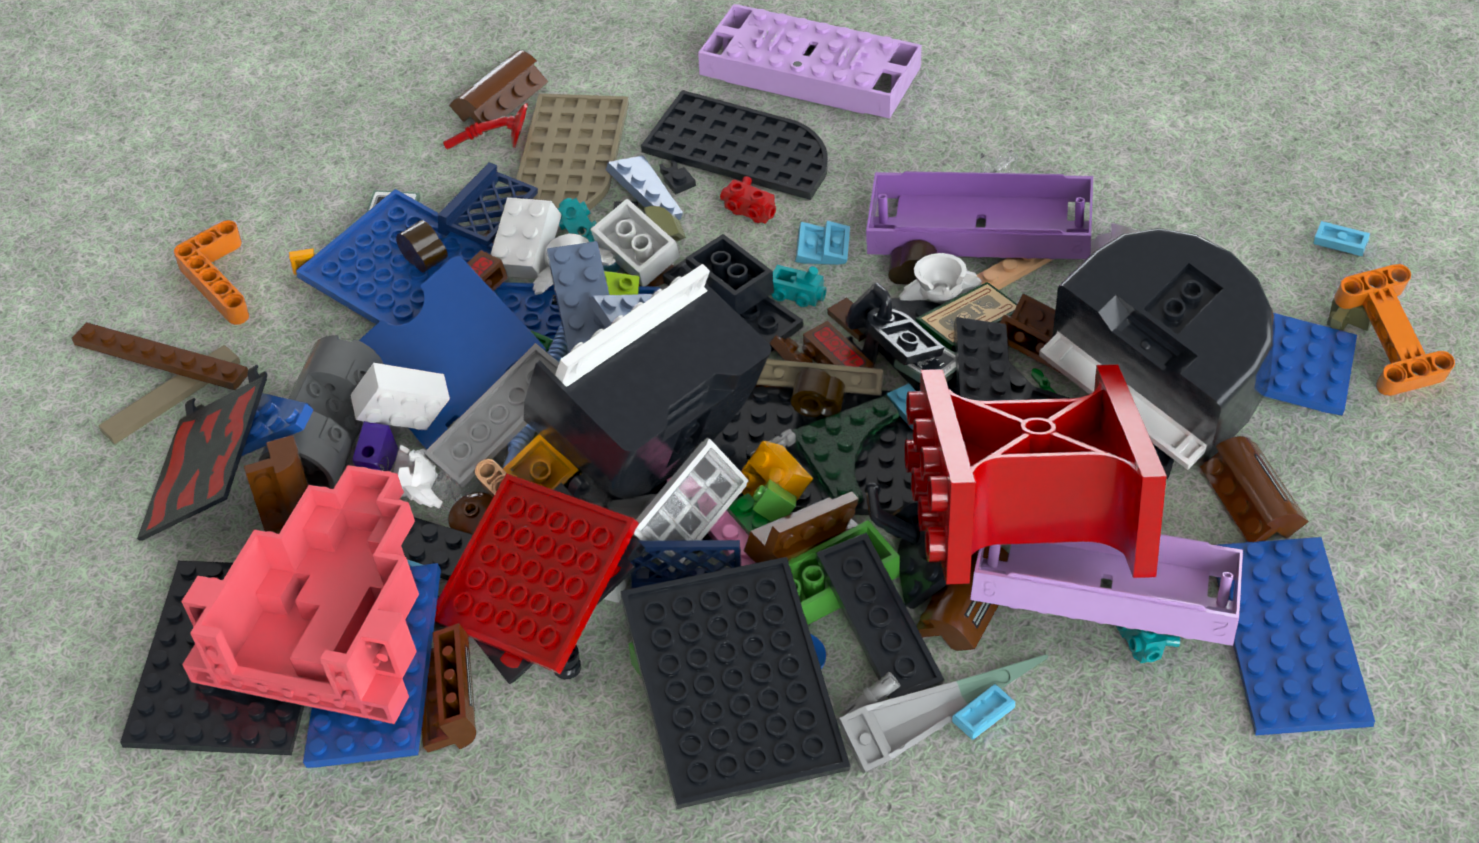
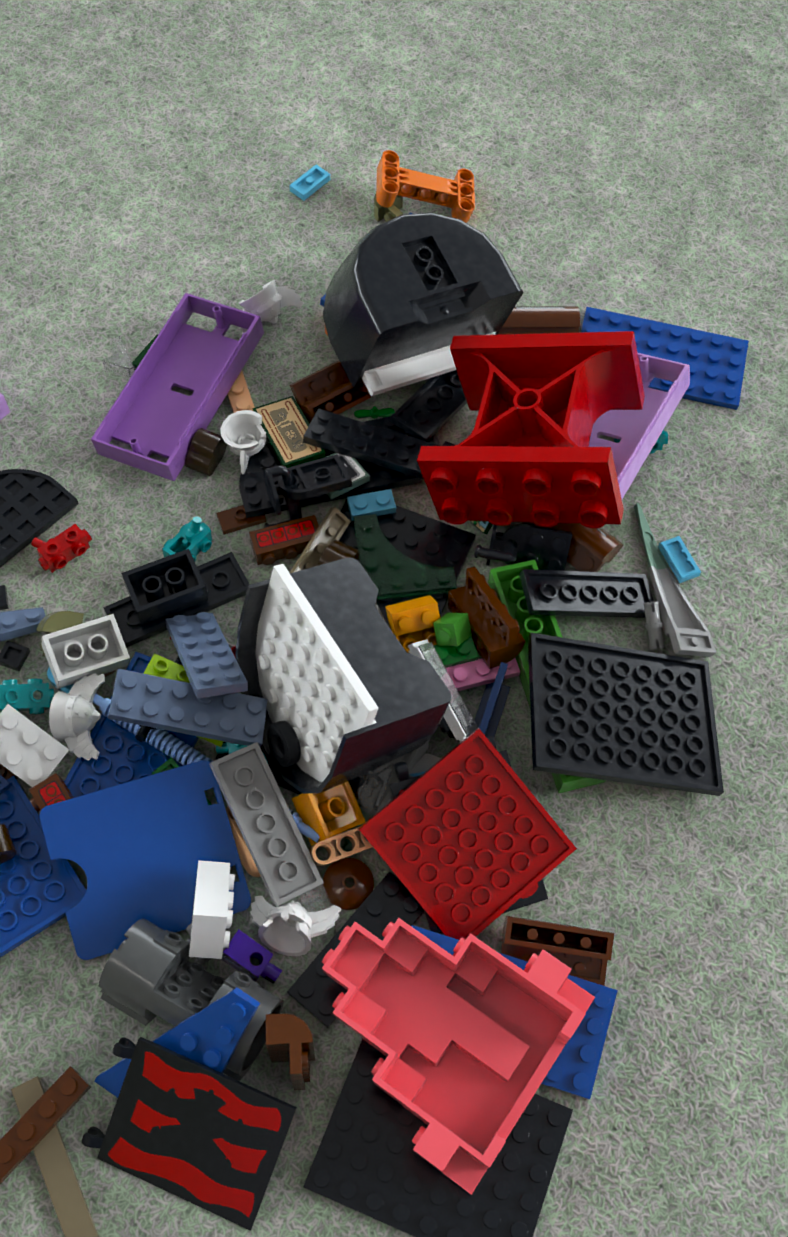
camera: 80 degrees left, 15 degrees up
(789, 350) = (261, 573): reddish brown plate -> none
(822, 244) = (139, 511): medium azure slope -> none

